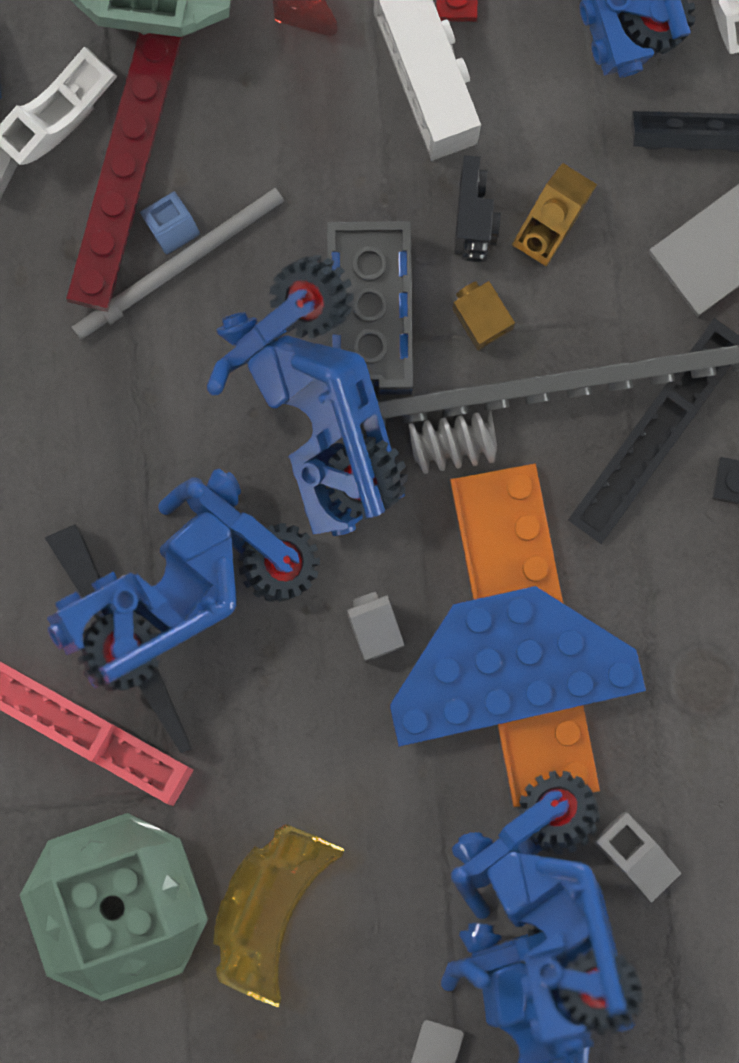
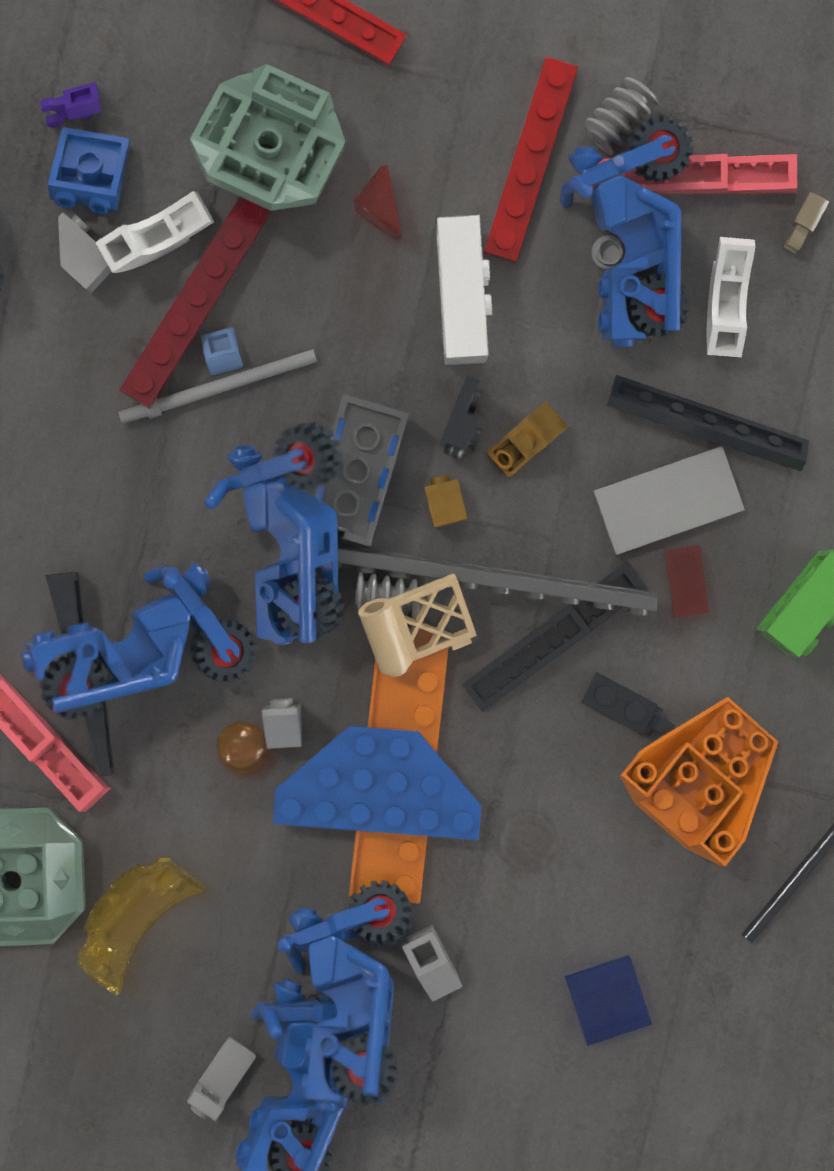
camera: 20 degrees right, 5 degrees up
(335, 673) = (242, 748): none -> clear orange hair
(470, 484) = (391, 637): none -> tan piece

